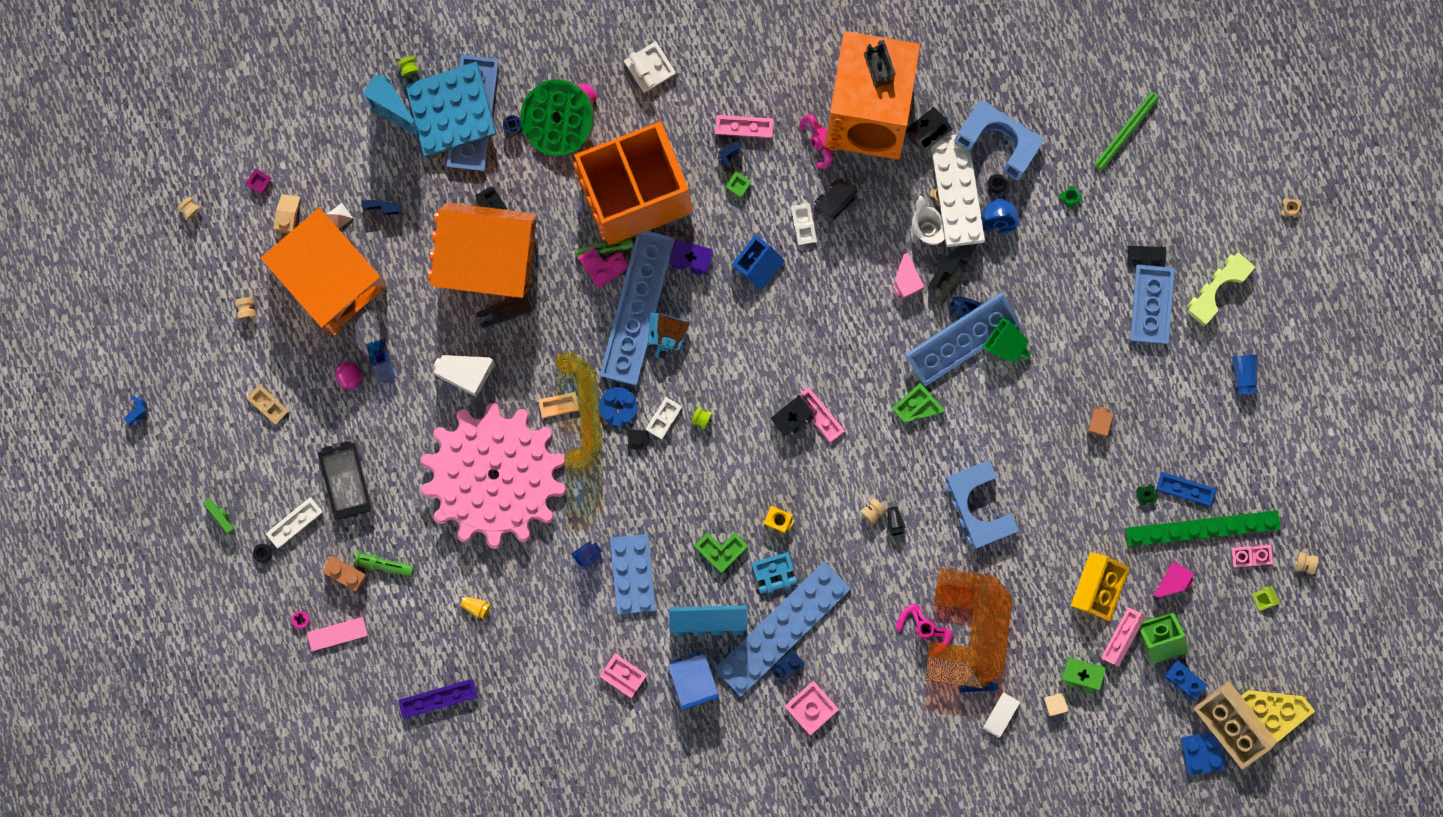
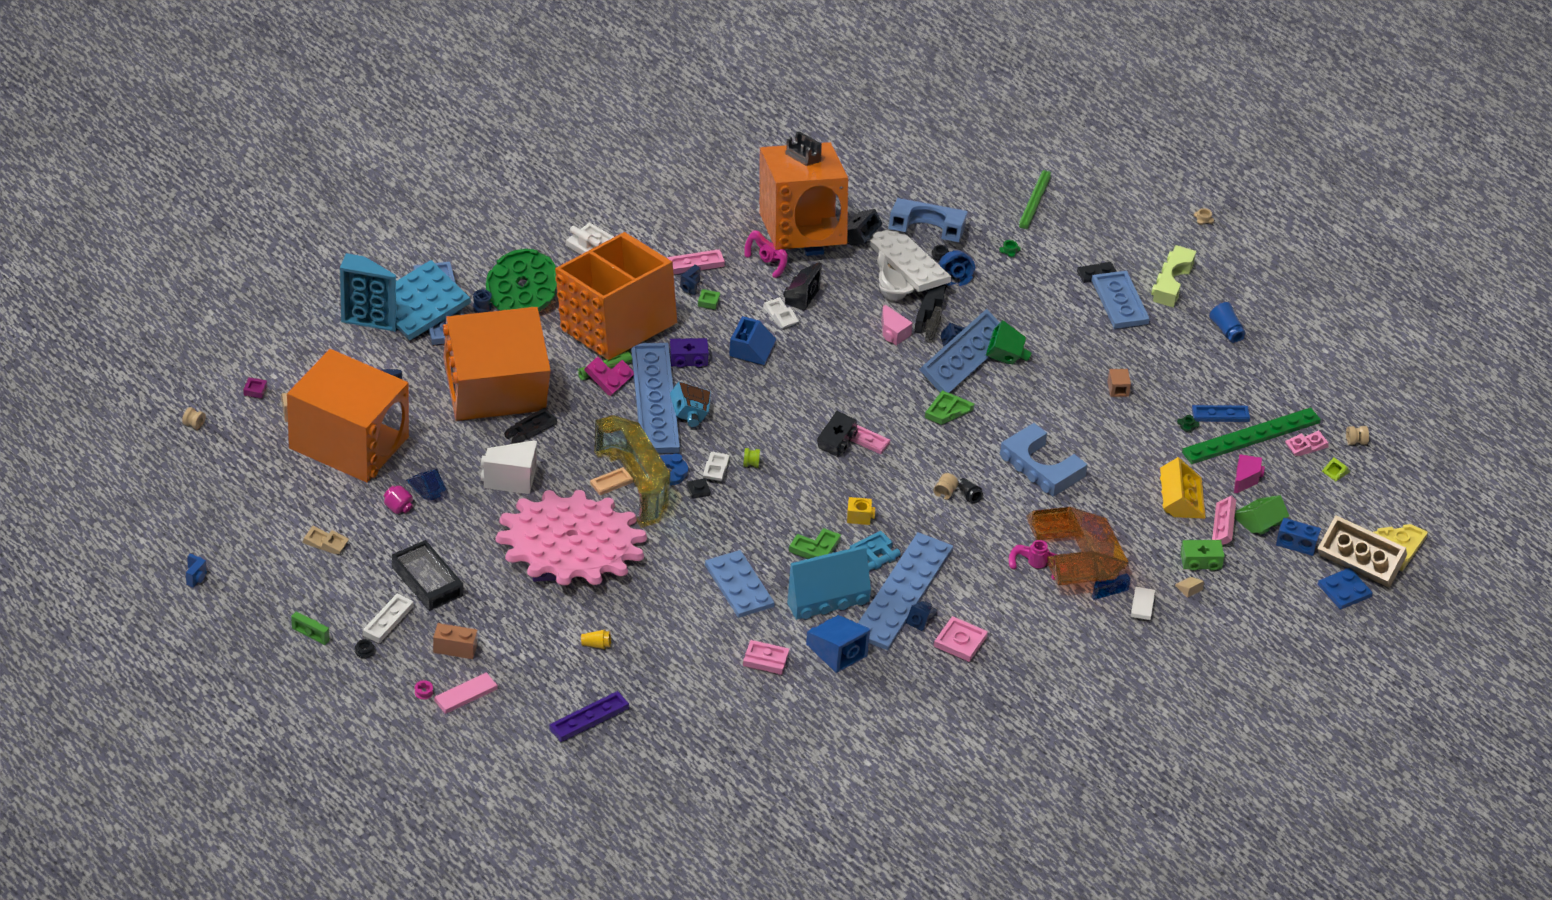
camera: 20 degrees left, 40 degrees down
(245, 308) = (276, 474): tan wheel -> none
(373, 562) = (495, 629): bright green pin -> none
(587, 555) = (688, 575): clear blue slope -> none

